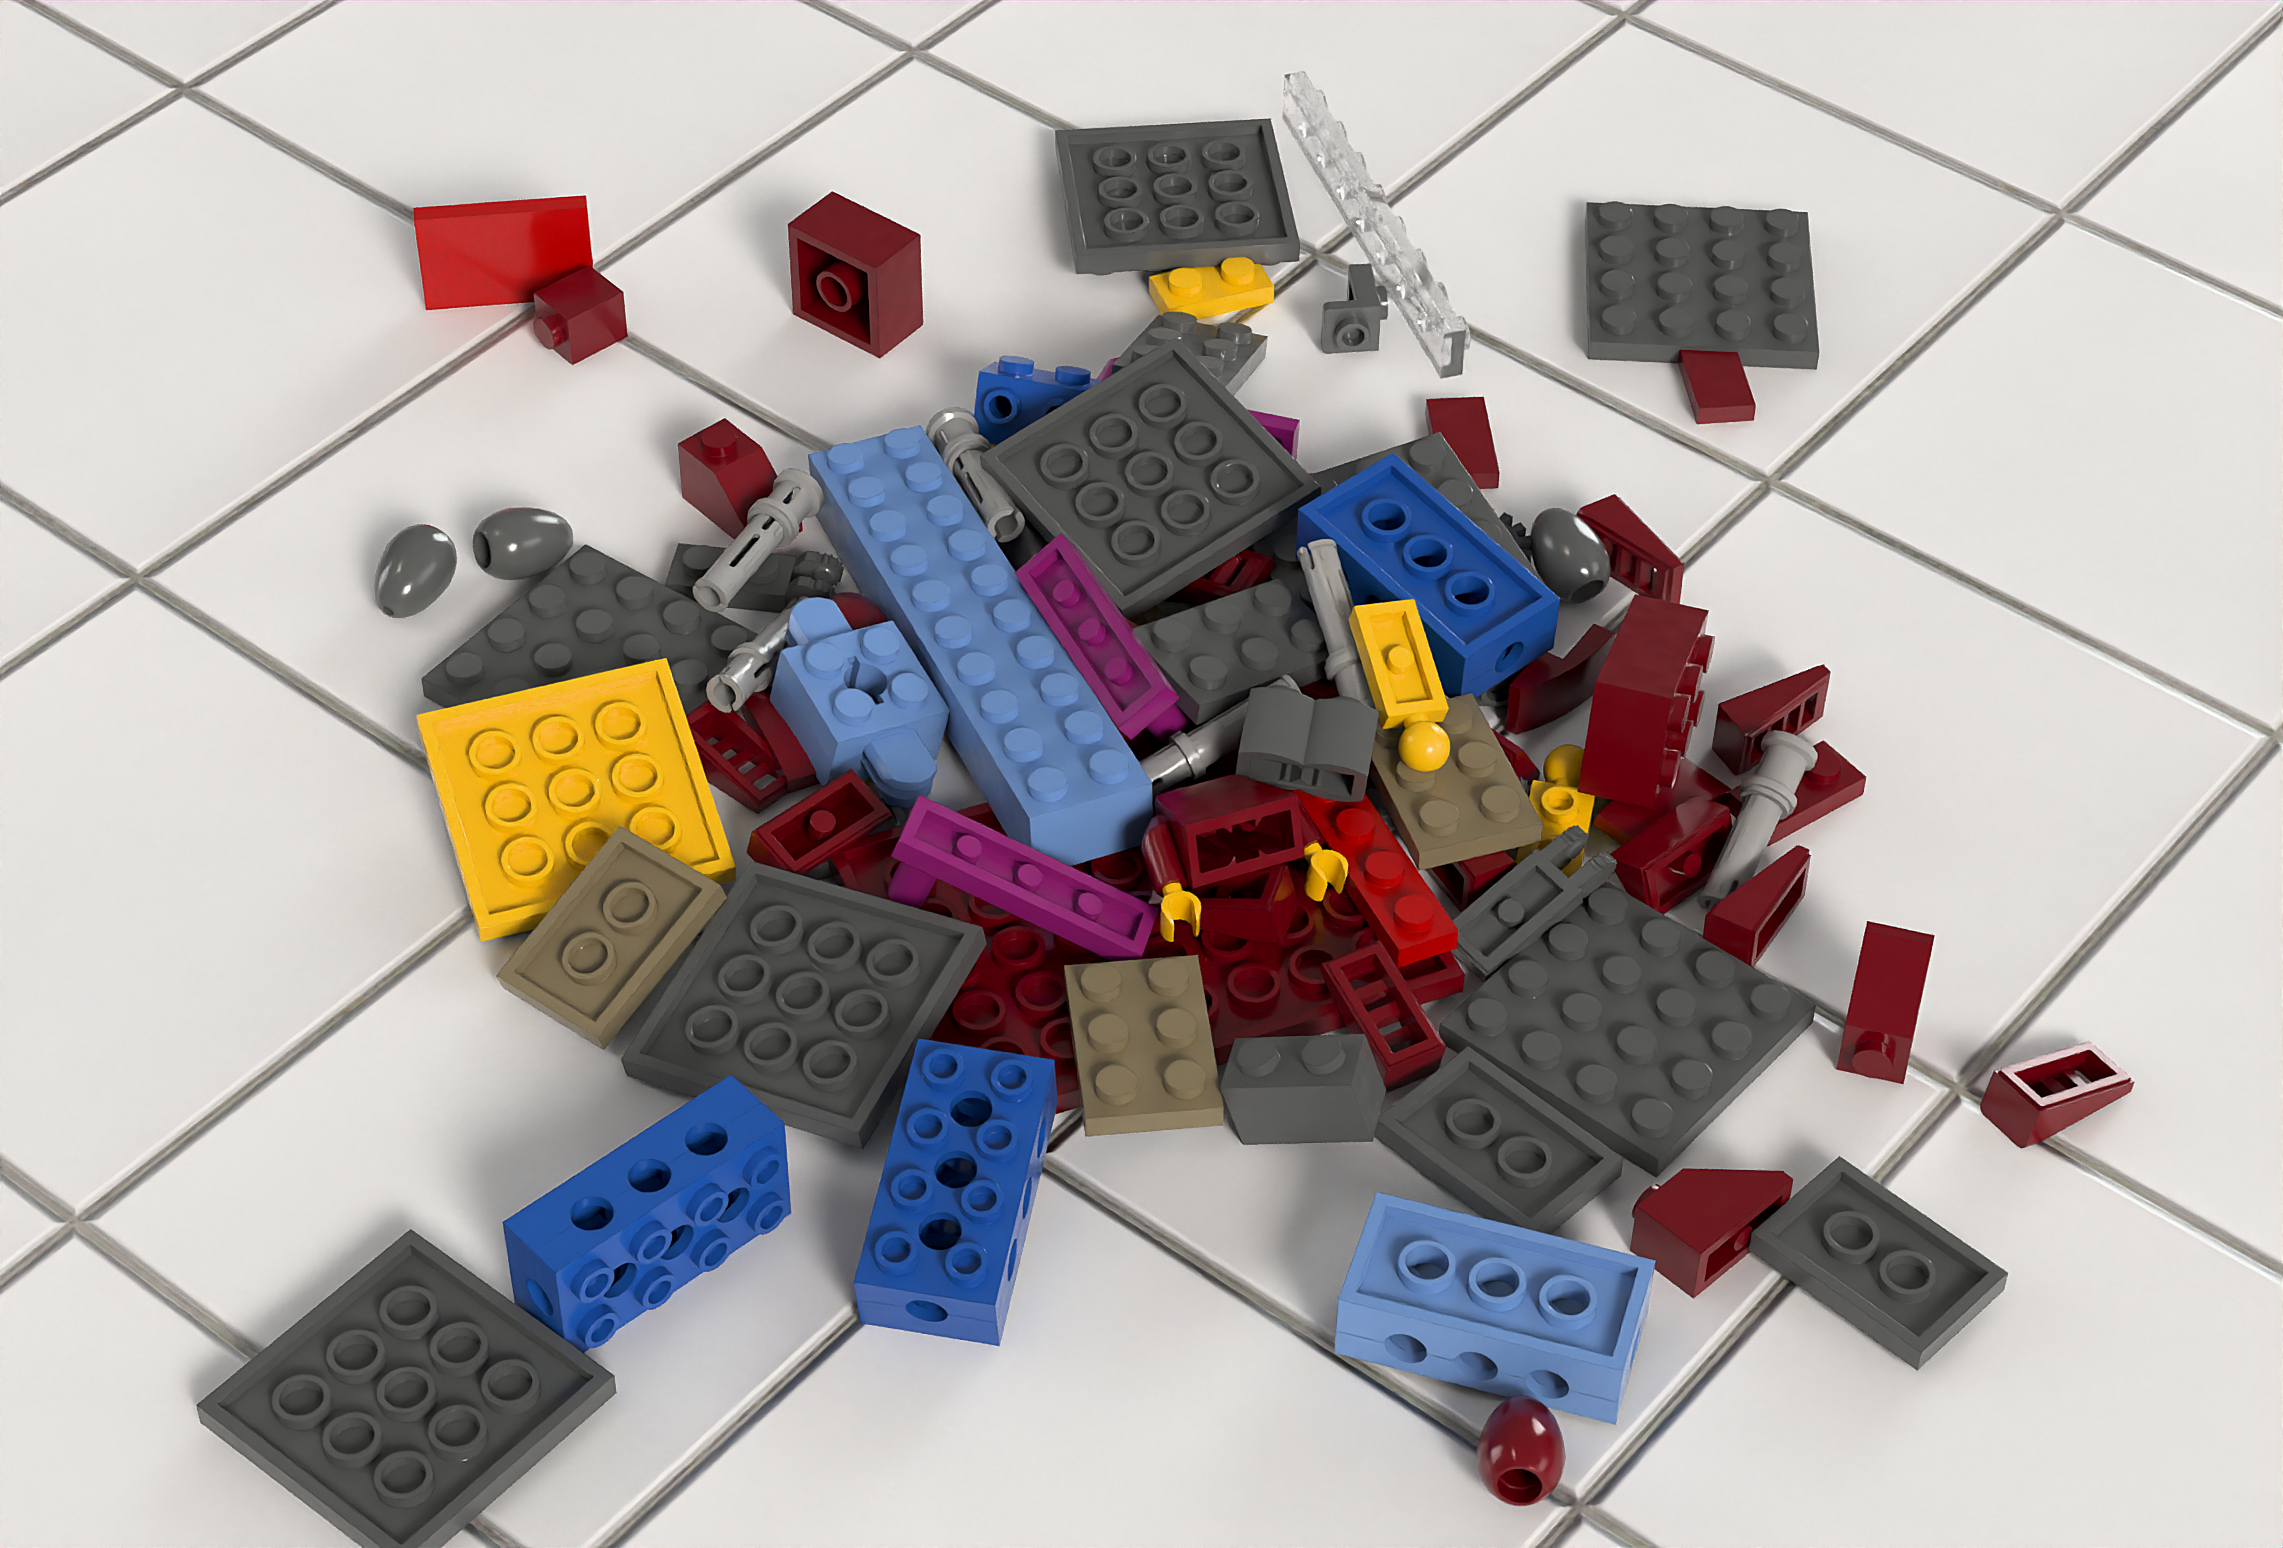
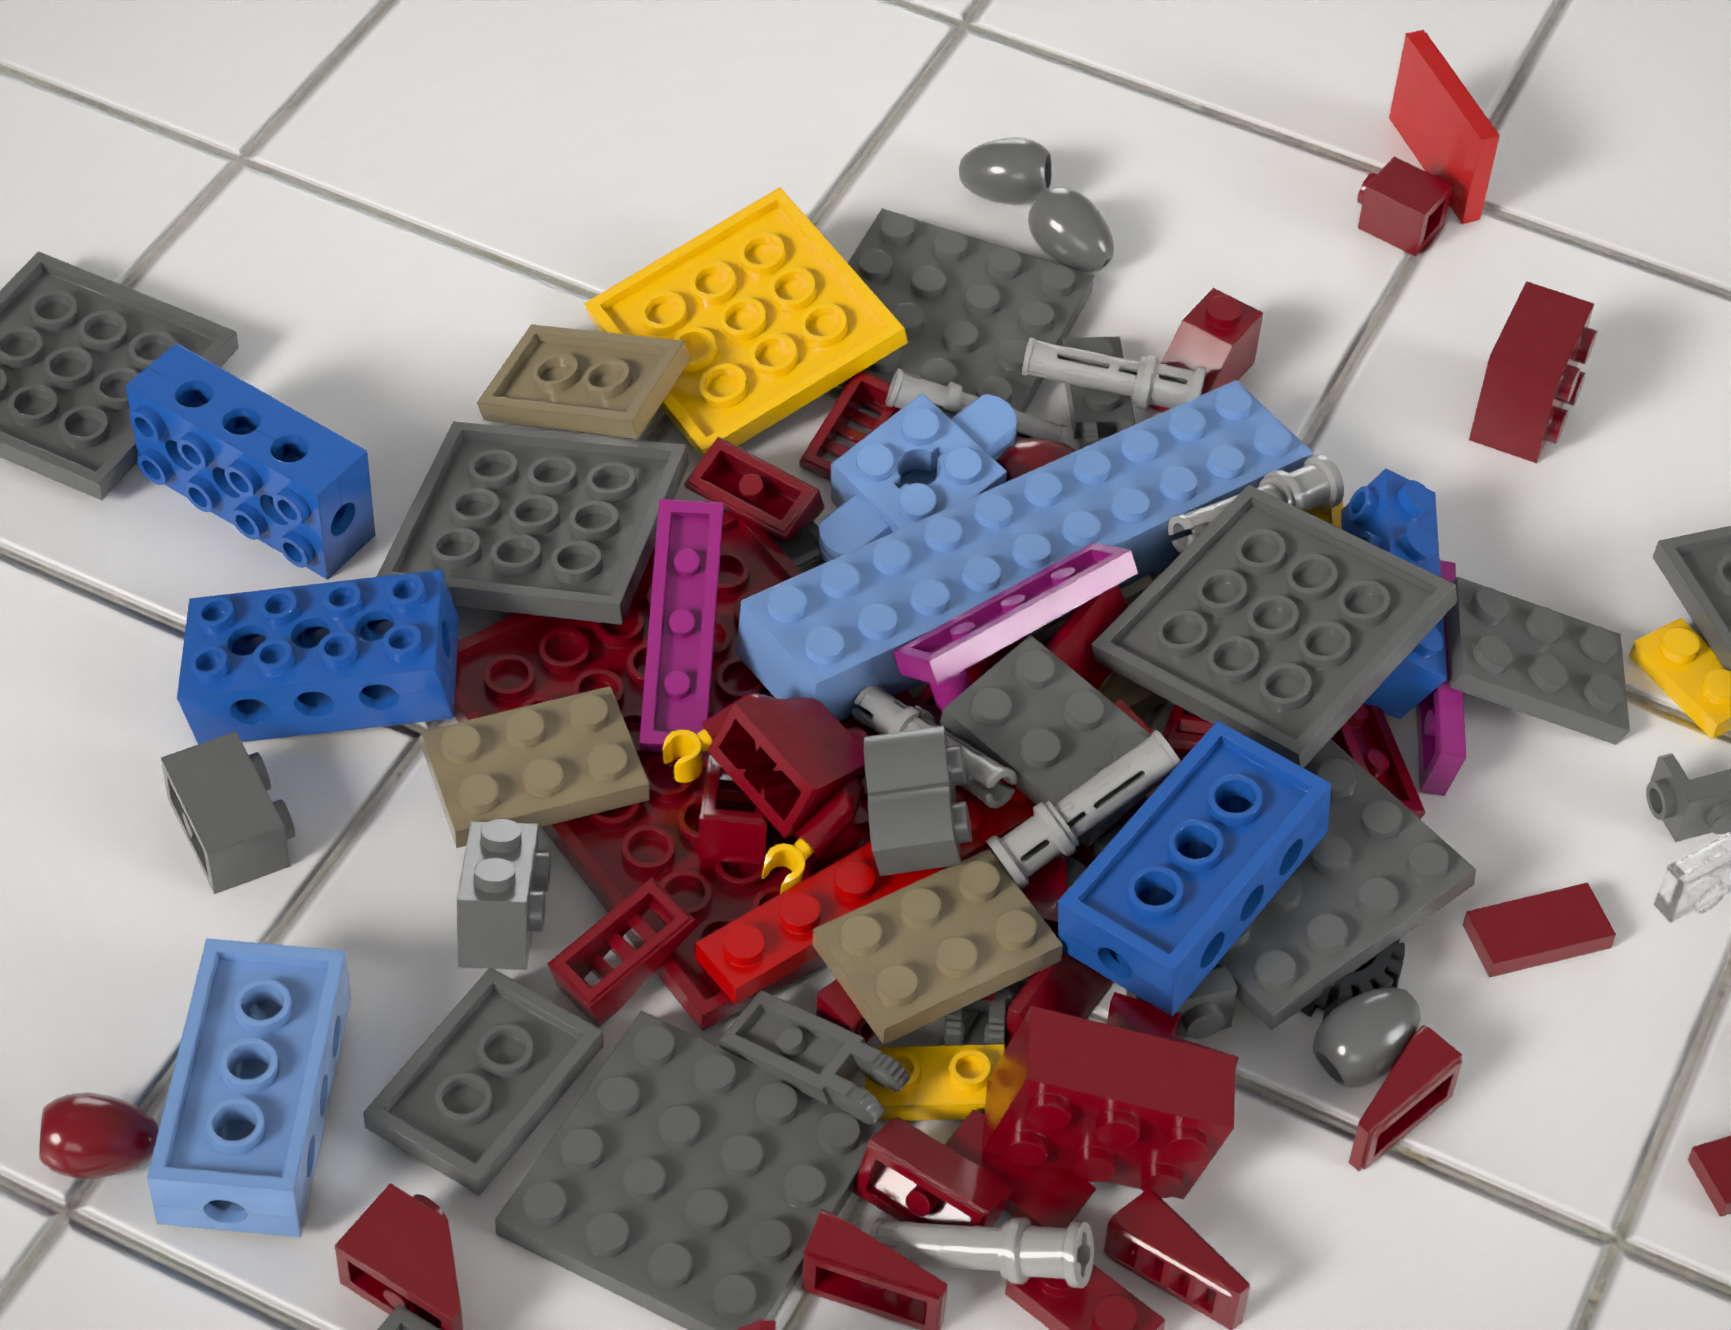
camera: 75 degrees right, 5 degrees up
(1124, 1309) = (227, 811): none -> dark grey brick
(1403, 679) = (1015, 857): yellow plate -> none

